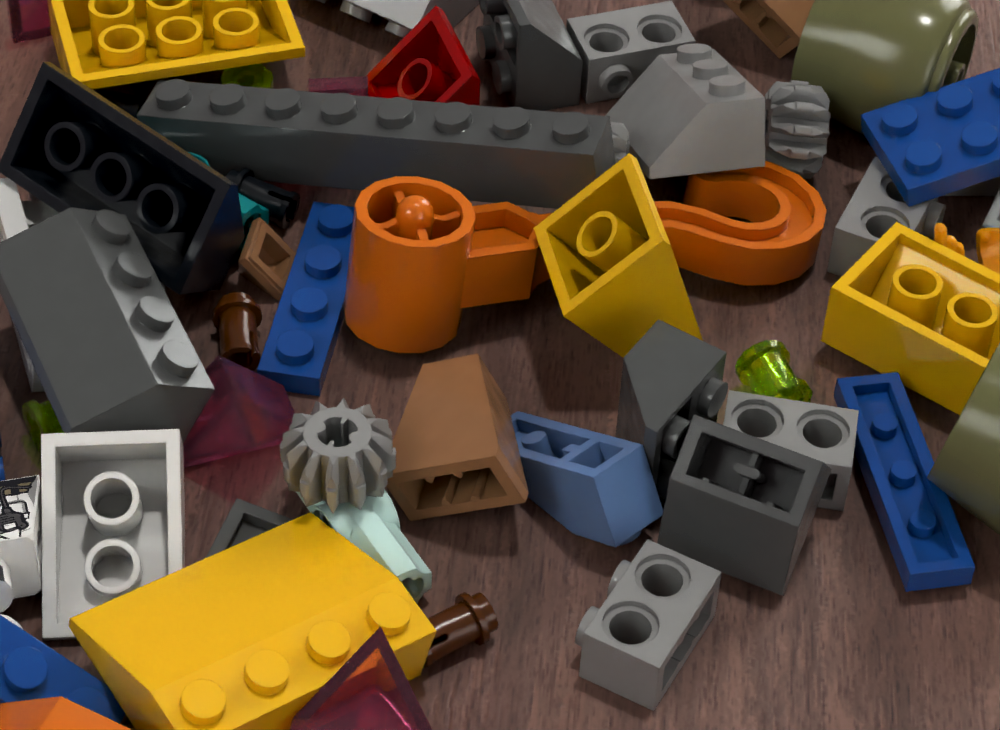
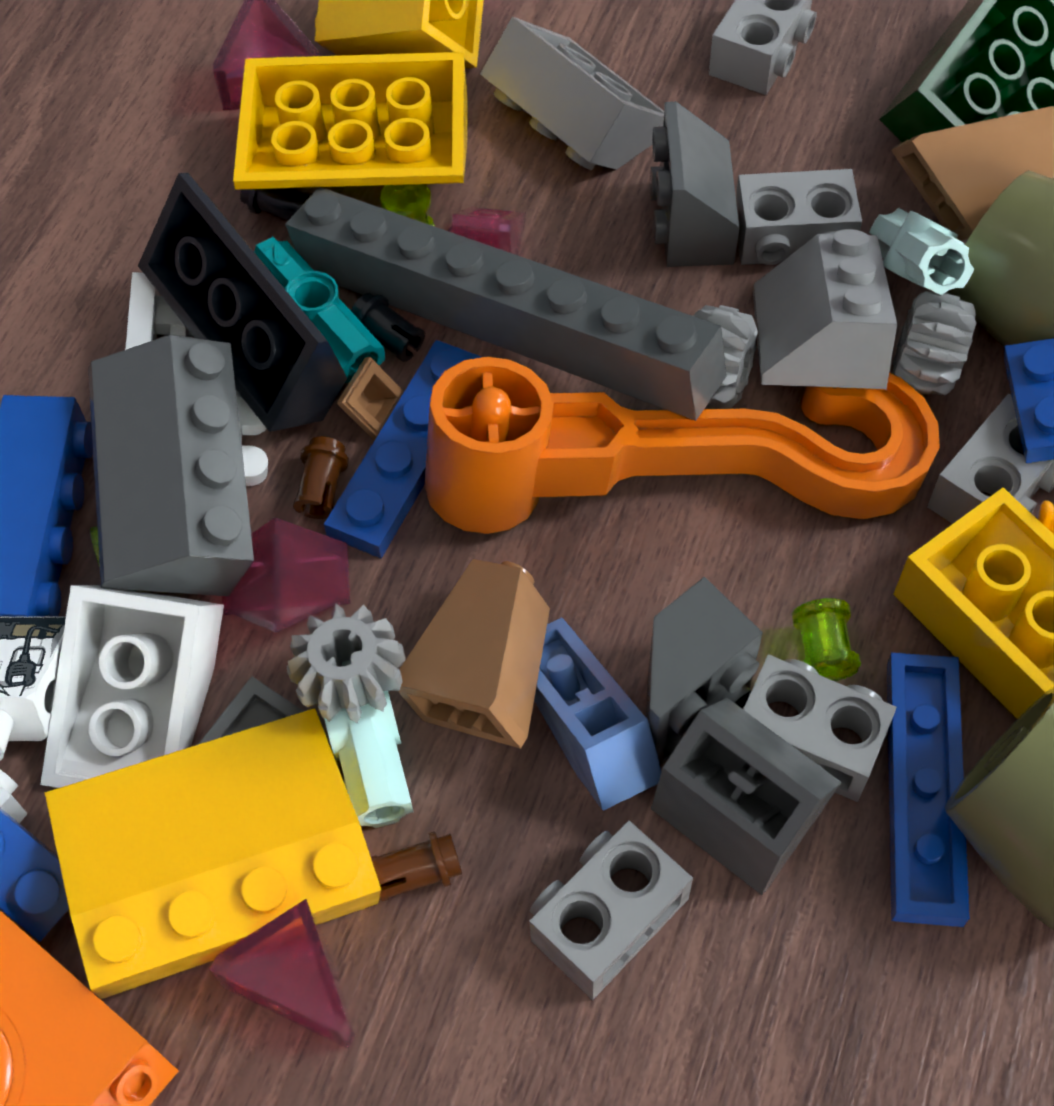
camera: 20 degrees right, 15 degrees up
(427, 66) = (579, 223): red slope -> none
(615, 261) = (691, 497): yellow slope -> none
(765, 49) = (922, 251): none -> light aqua piece

